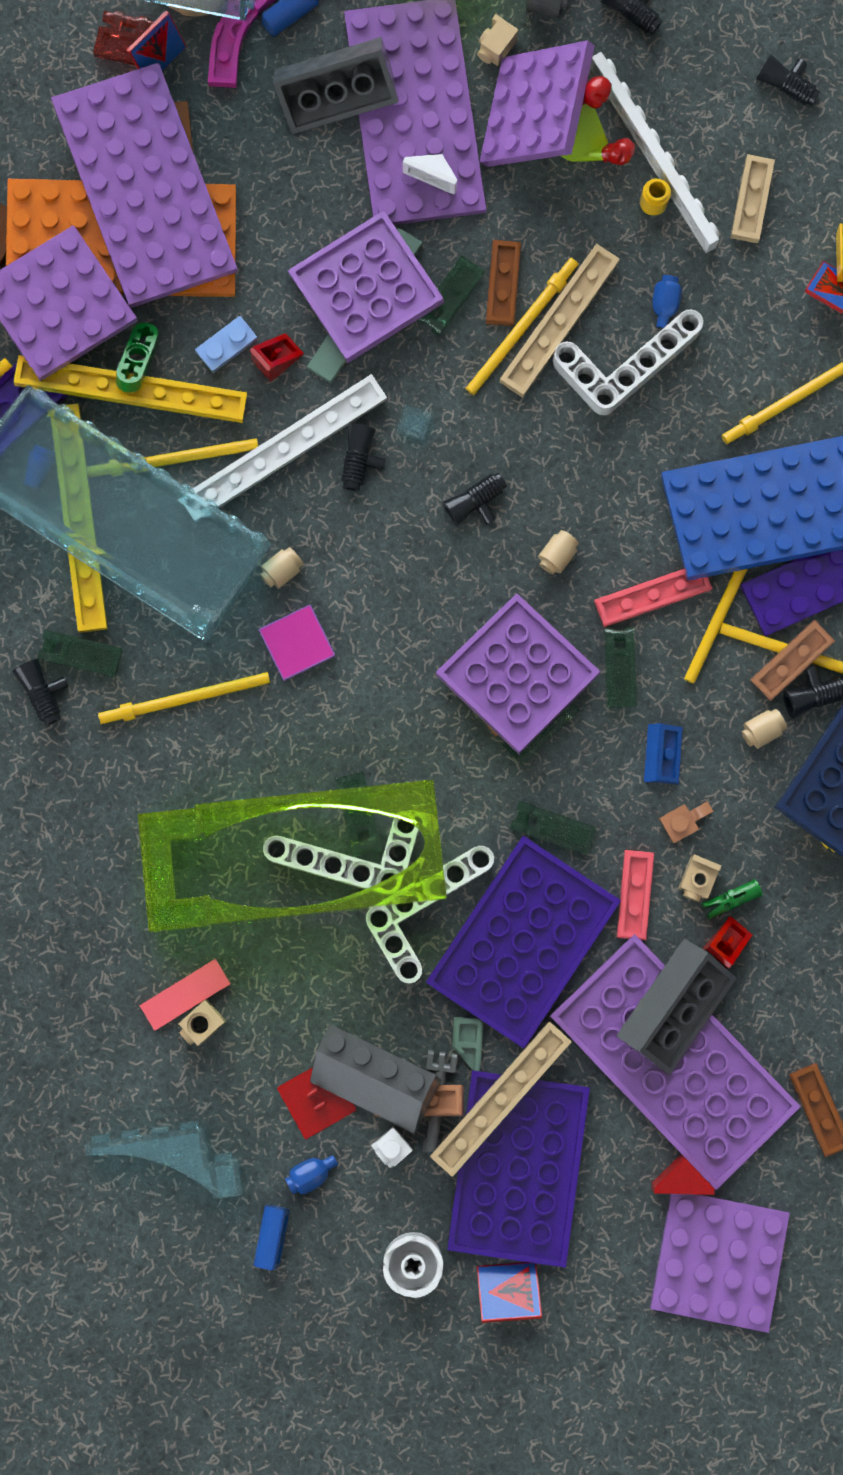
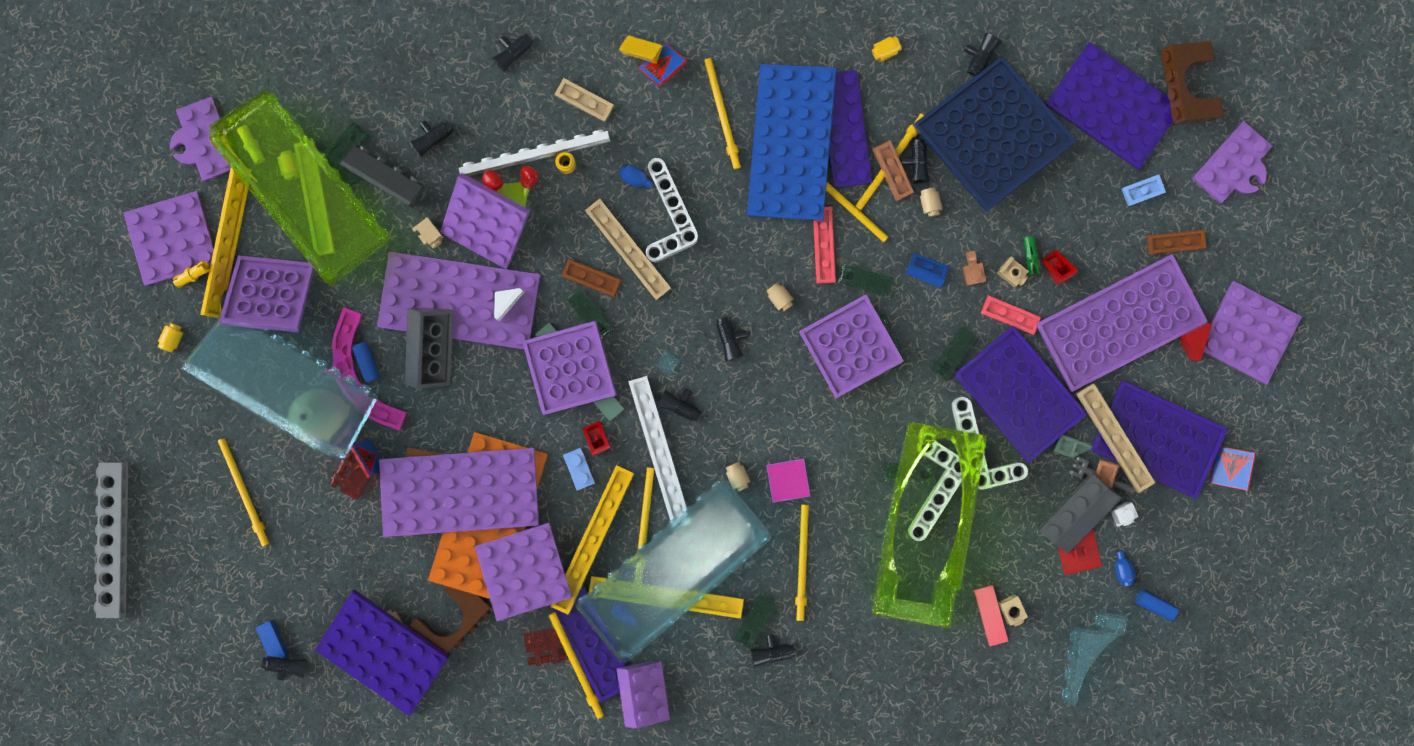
camera: 70 degrees left, 5 degrees up
(135, 346) = (564, 529): green beam -> none
(405, 1280) = (1207, 530): white brick -> none
(555, 284) = (602, 244): yellow bar -> none
(676, 1006) = (1090, 312): dark grey slope -> none

